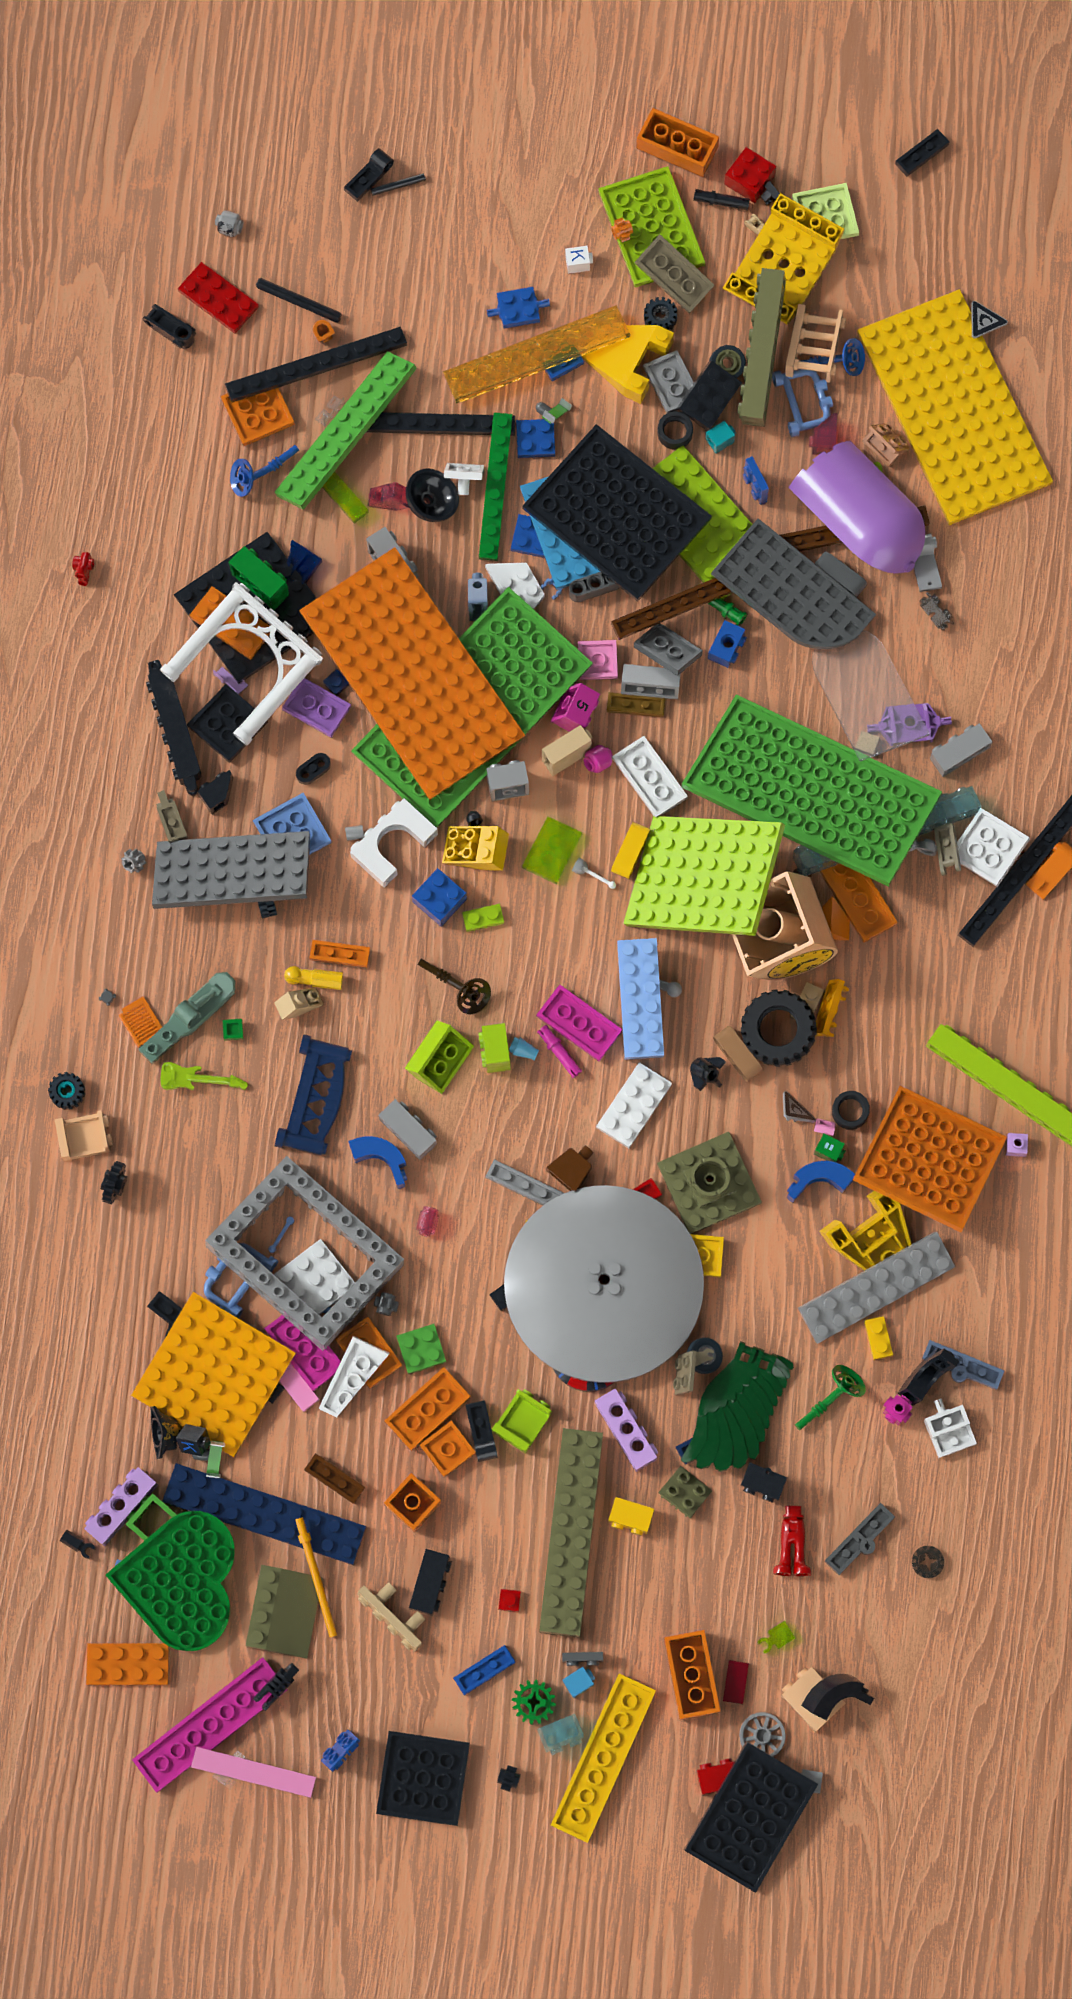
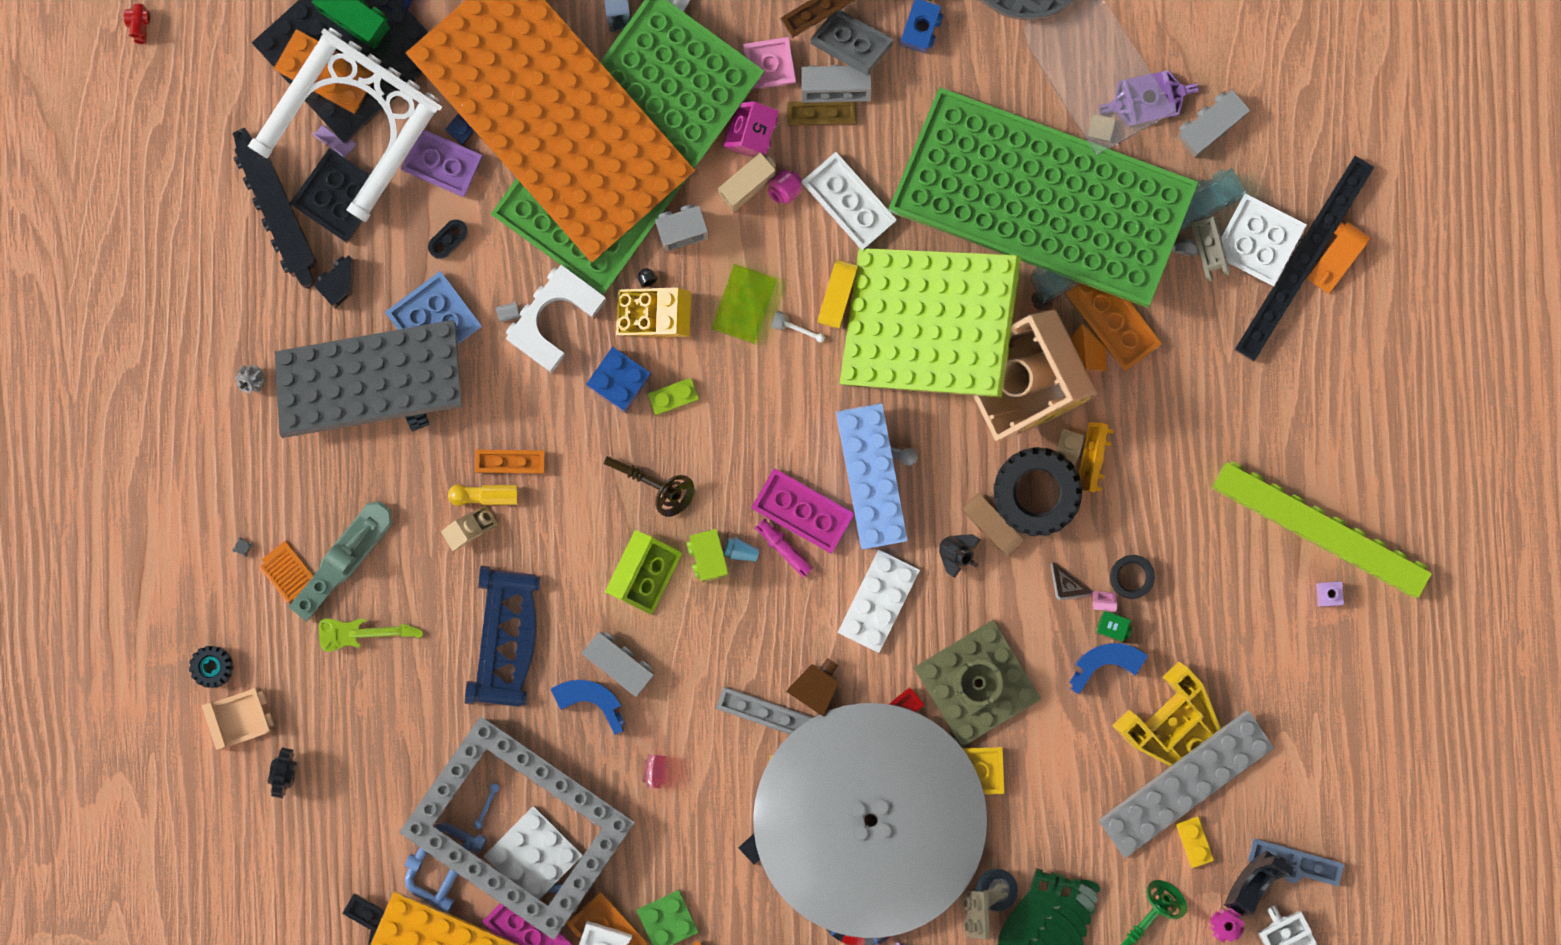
camera: 10 degrees left, 10 degrees up
(170, 818) = (286, 321): dark tan hinge -> none
(233, 1029) = (396, 569): green plate -> none
(386, 1304) = (620, 875): dark grey gear -> none
(930, 1158) = (1232, 627): orange plate -> none

